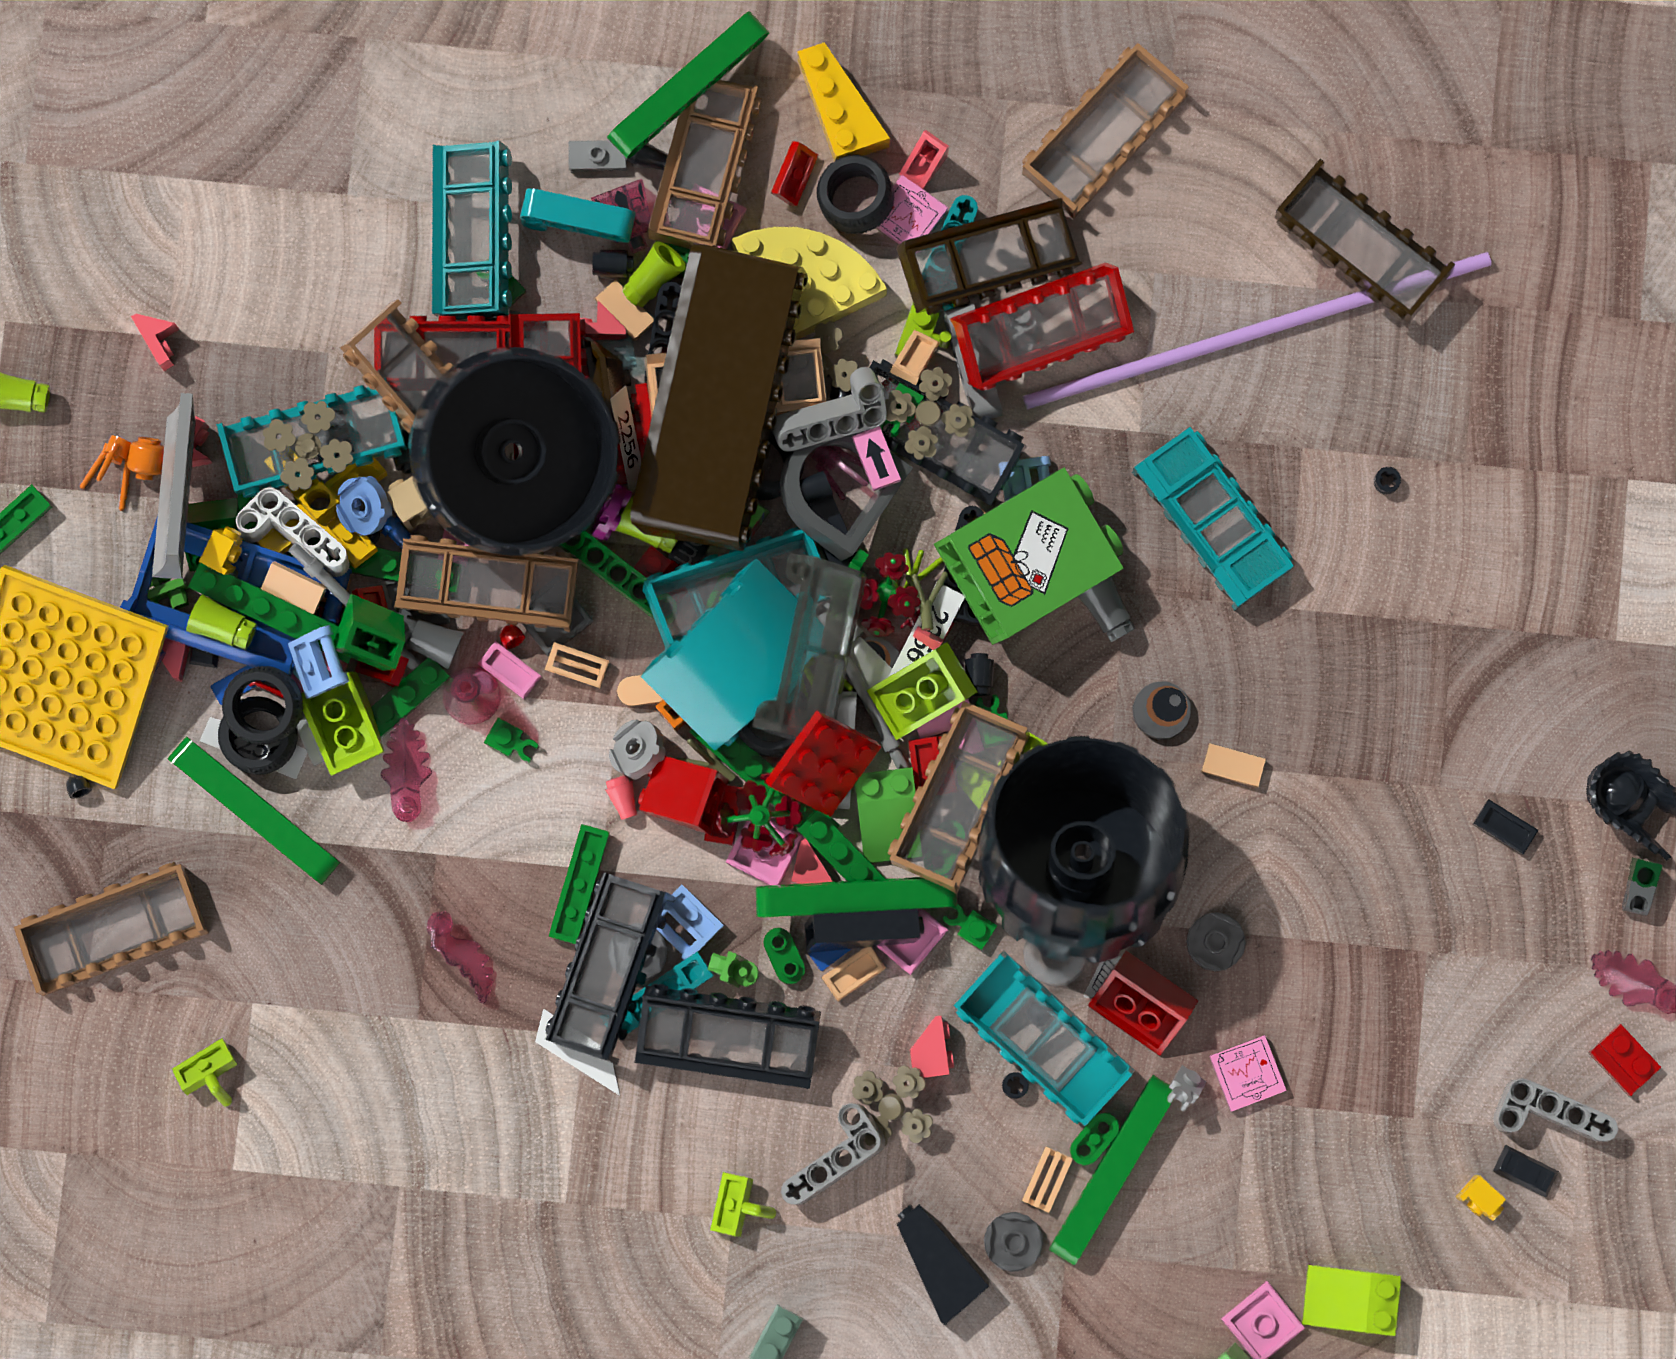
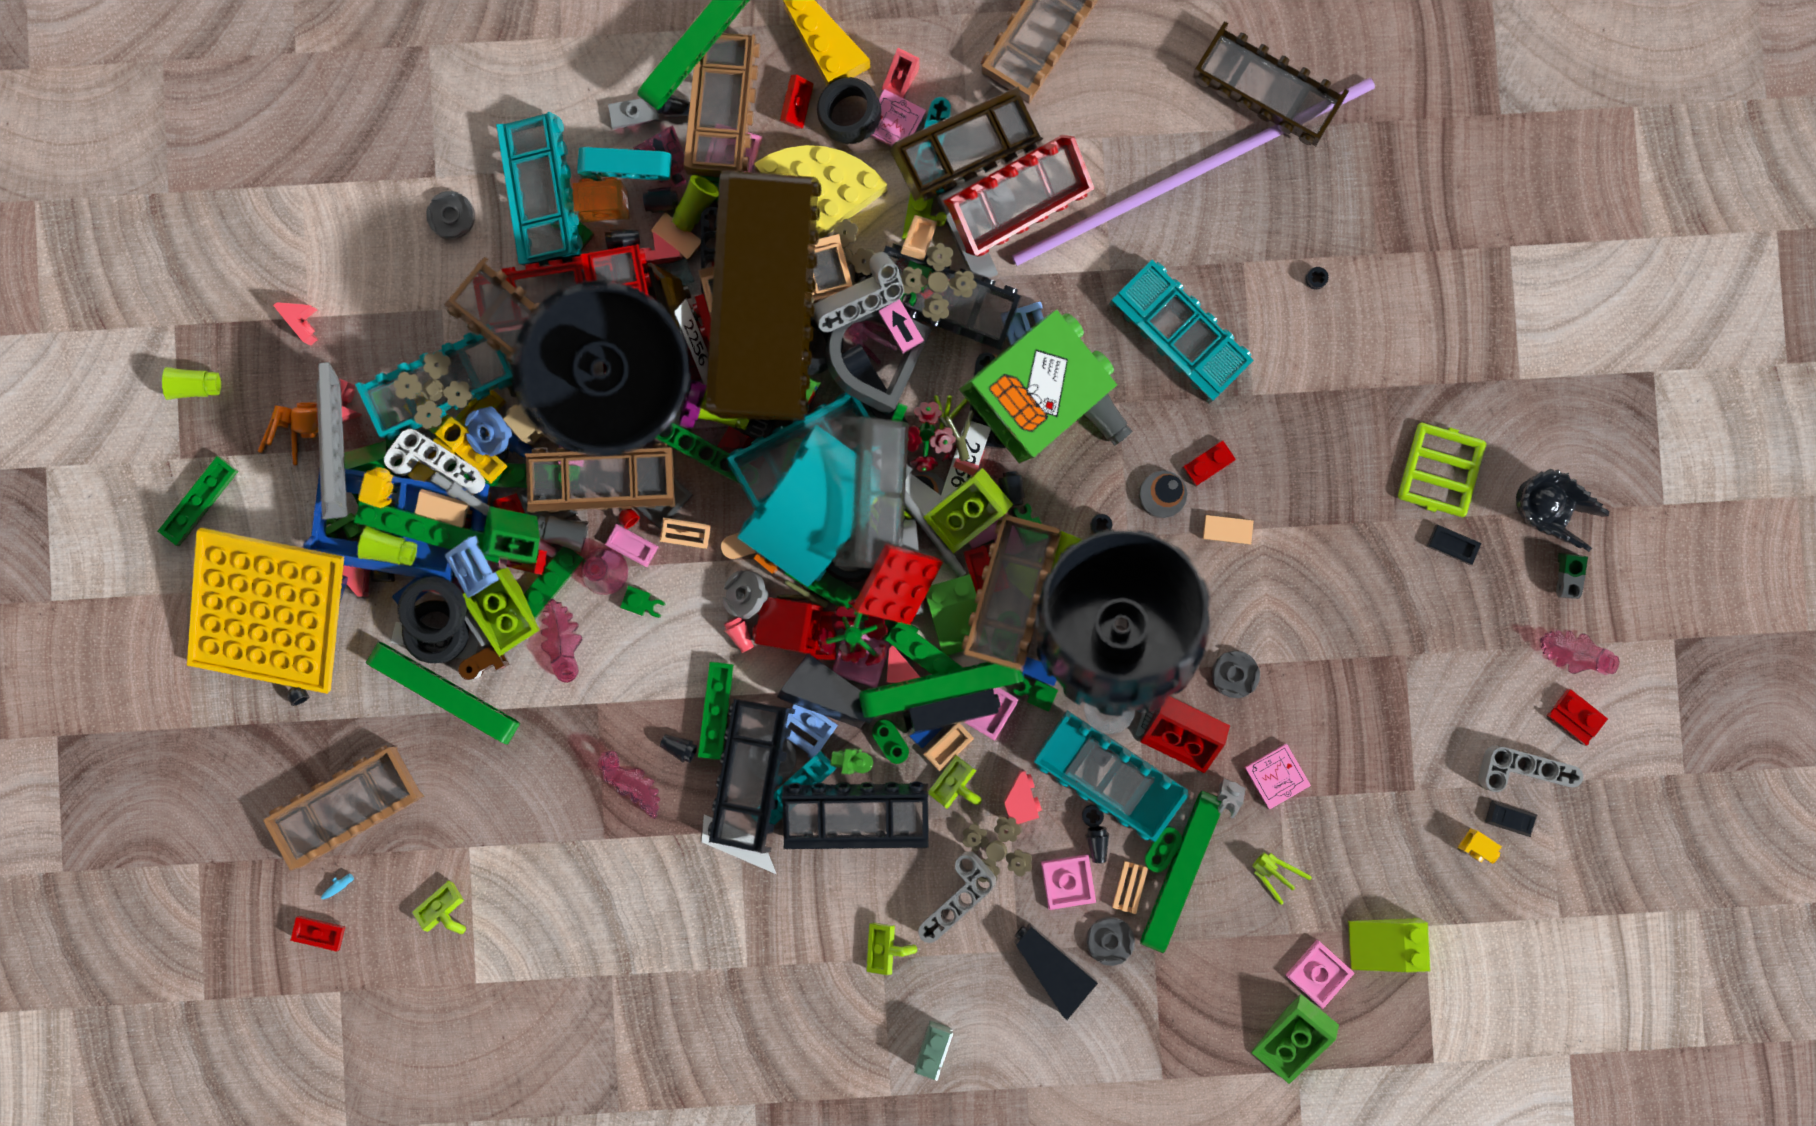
camera: 10 degrees left, 5 degrees up
(53, 1076) = (317, 933): none -> red plate
(86, 1024) = (337, 886): none -> medium azure helmet
(298, 783) = (476, 665): none -> reddish brown leg
(358, 242) = (450, 215): none -> flat silver tile
(527, 922) = (680, 748): none -> black cone
(542, 253) = (601, 200): none -> clear orange brick
(558, 302) = (621, 238): none -> black cone
(714, 882) = (824, 692): none -> black slope
(852, 1017) = (953, 782): none -> lime plate
(972, 1161) = (1068, 882): none -> bright pink tile
(973, 898) = (1035, 670): none -> blue sticker
(1016, 1119) = (1098, 843): none -> black cone
(1088, 727) = (1093, 524): none -> black bush
(1217, 1179) = (1266, 866): none -> lime plant
(1223, 682) = (1209, 463): none -> red plate
(1466, 732) = (1466, 489): none -> lime bar

